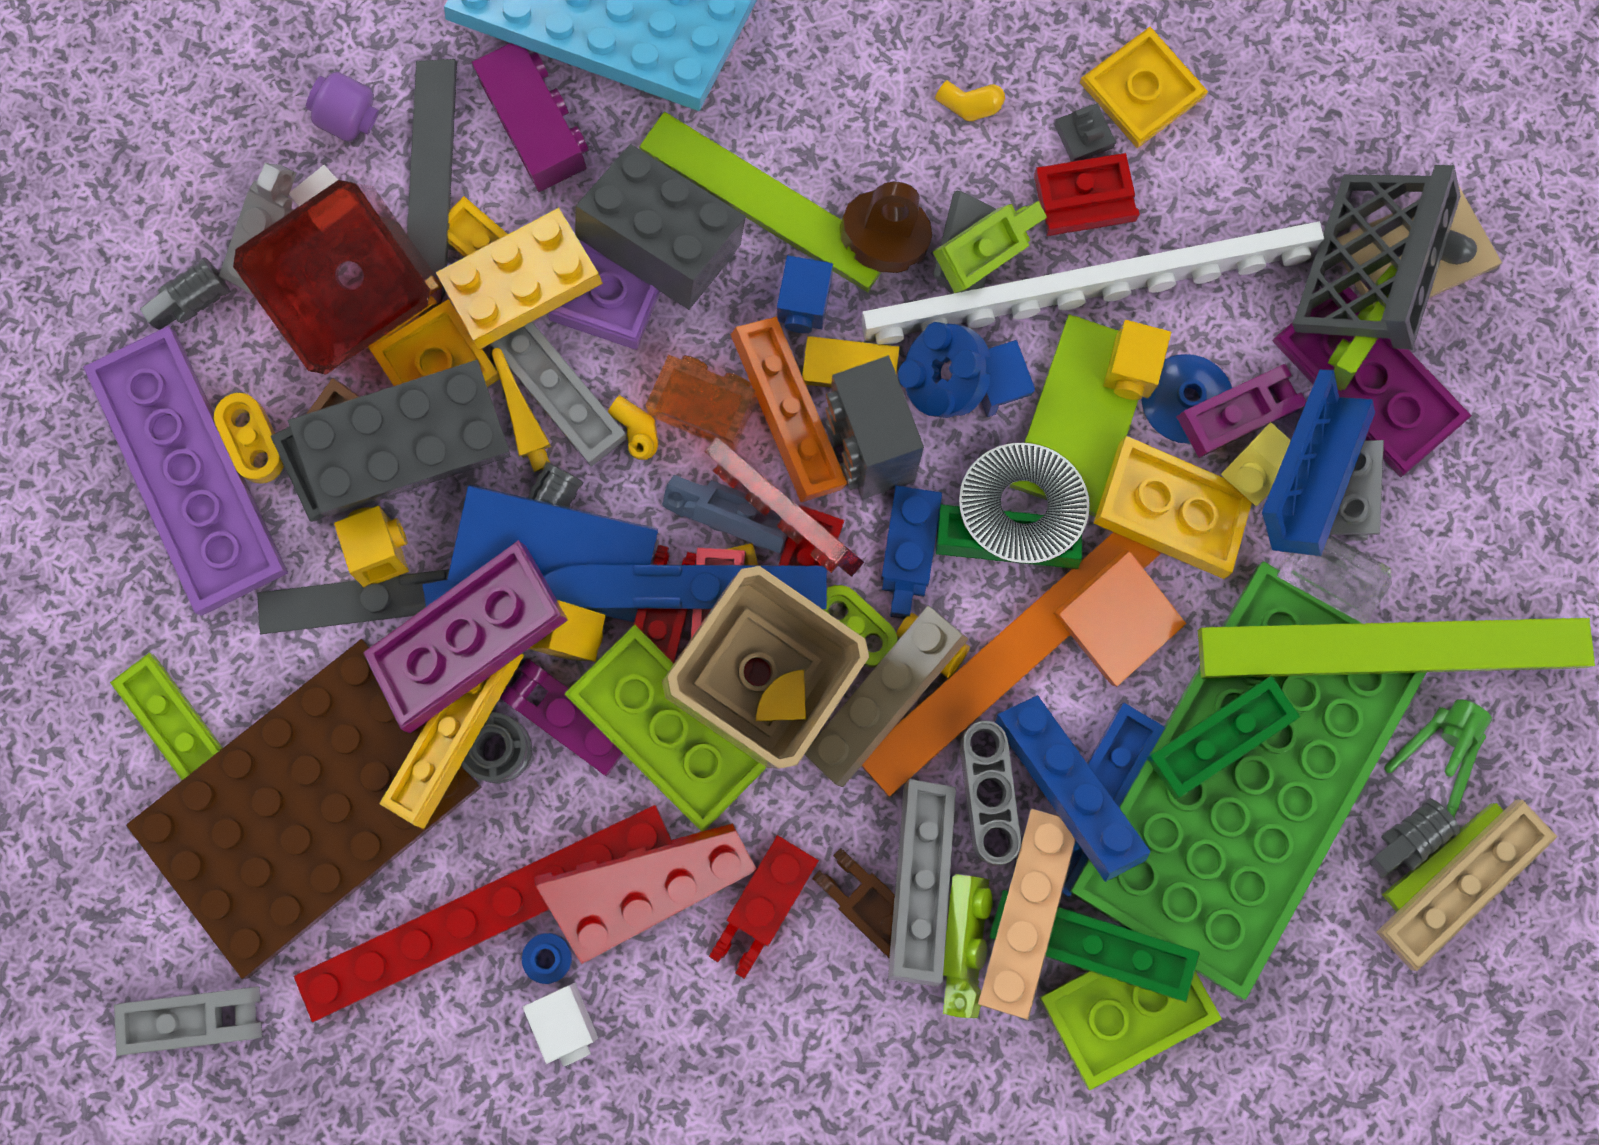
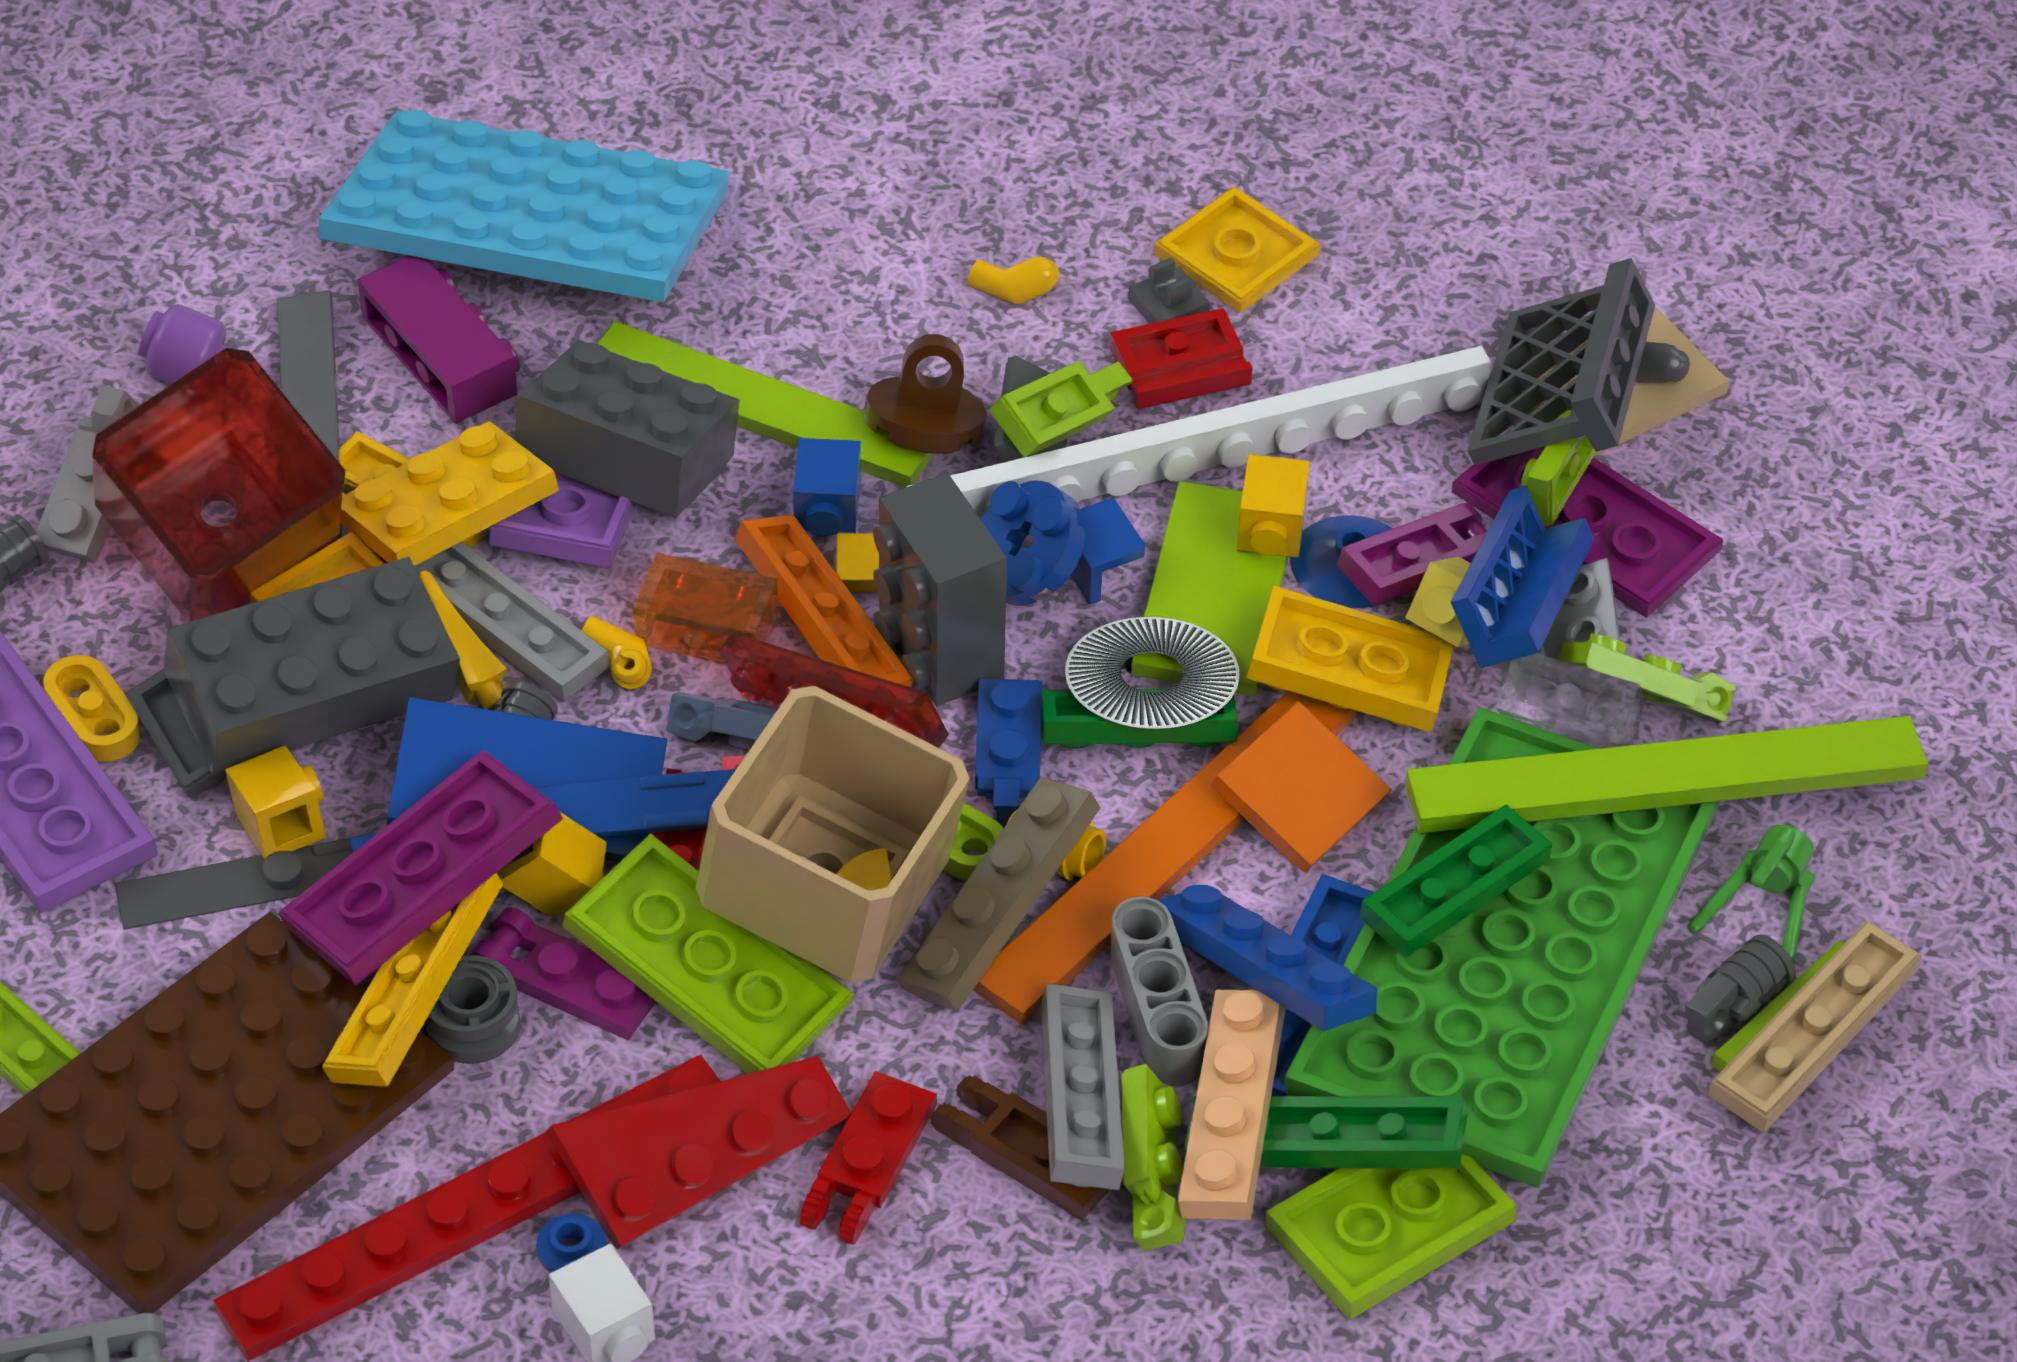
camera: 10 degrees left, 30 degrees down
(1395, 559) = (1659, 677): none -> lime hinge

